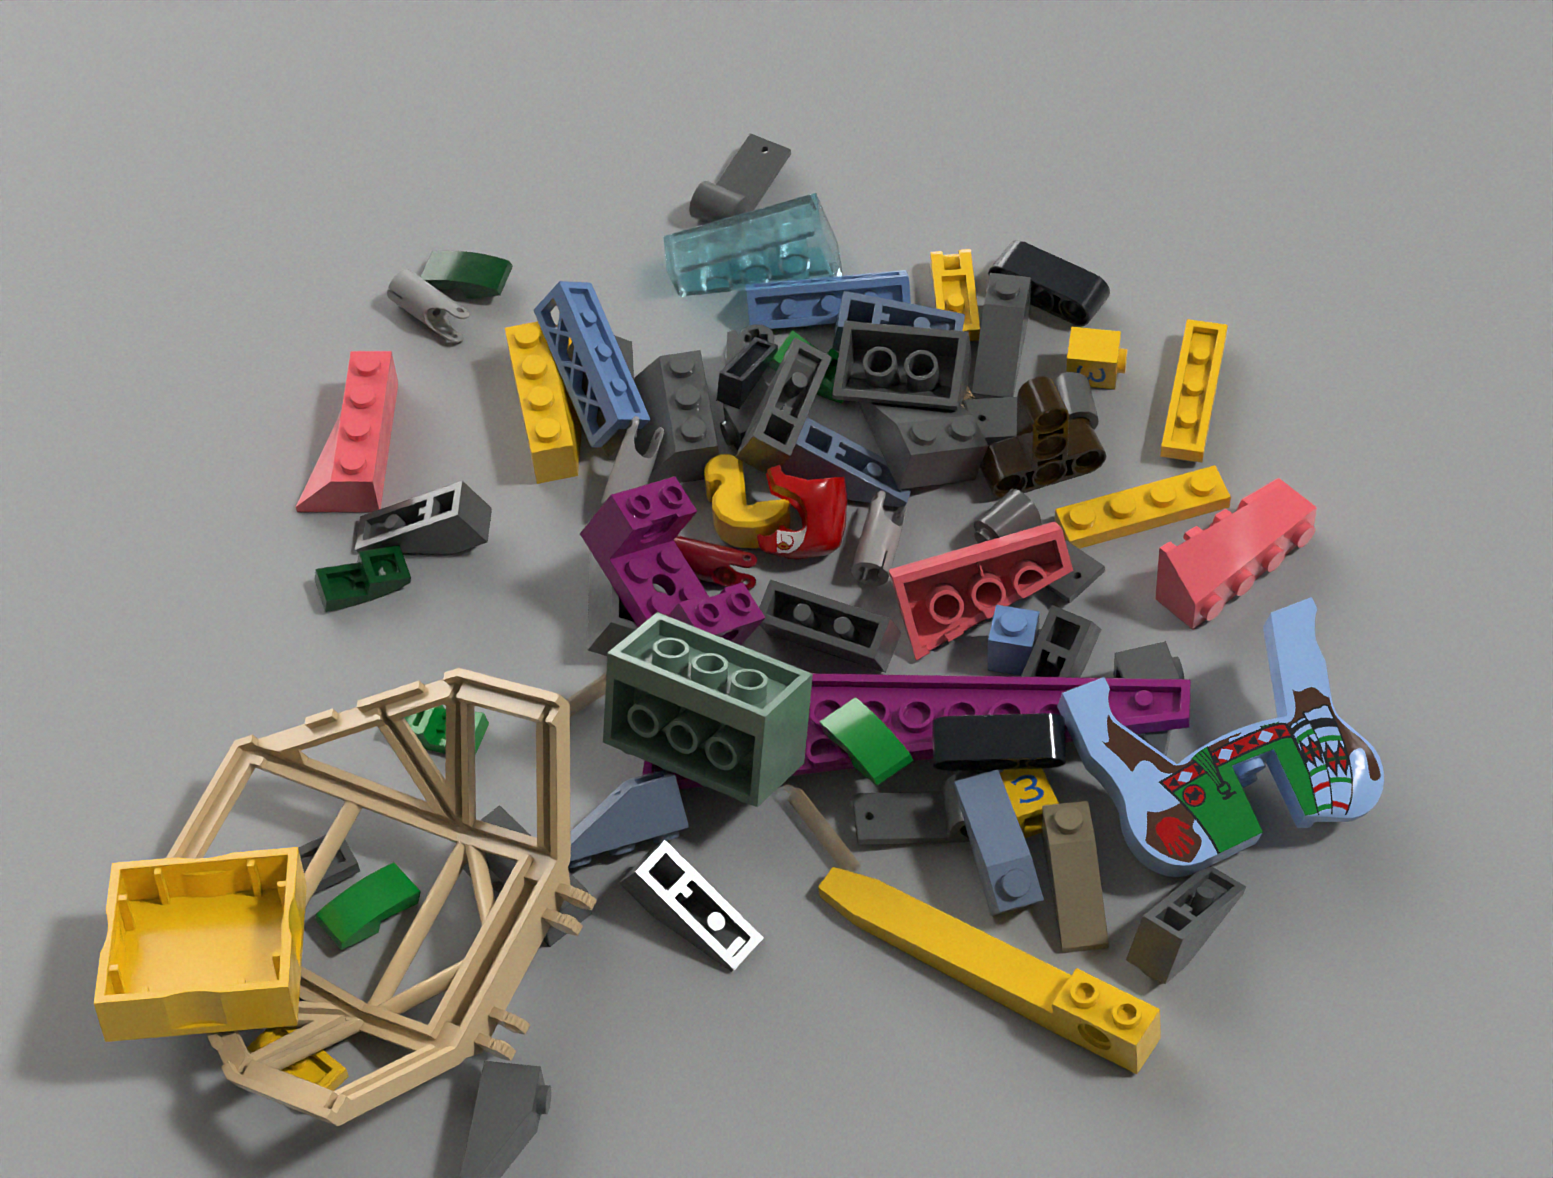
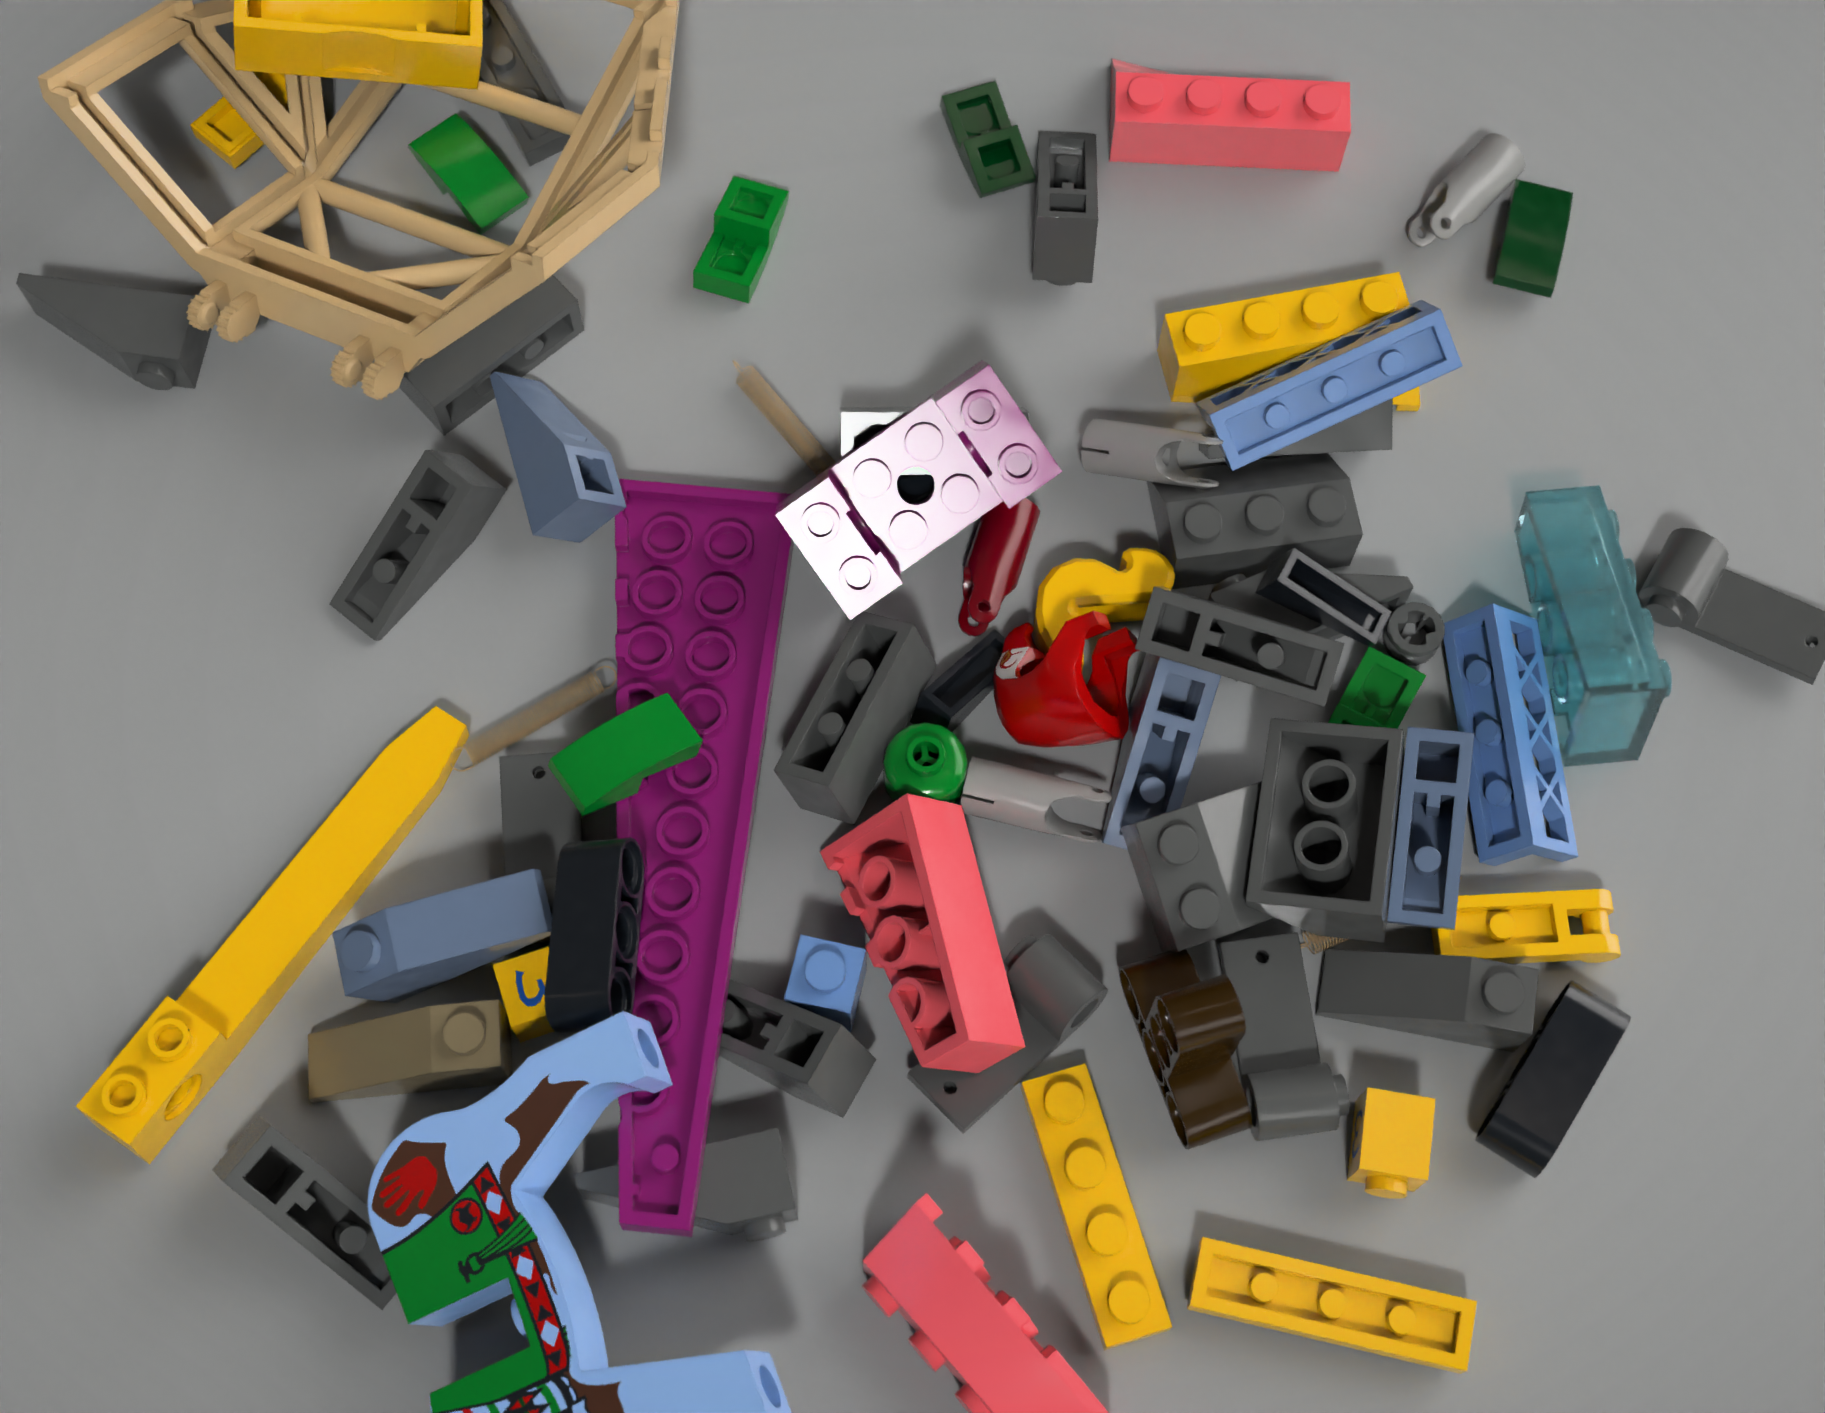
camera: 85 degrees right, 15 degrees up
(706, 708) = (653, 521): sand green brick -> none
(794, 574) = (961, 686): none -> black piece
(864, 585) = (925, 763): none -> green head

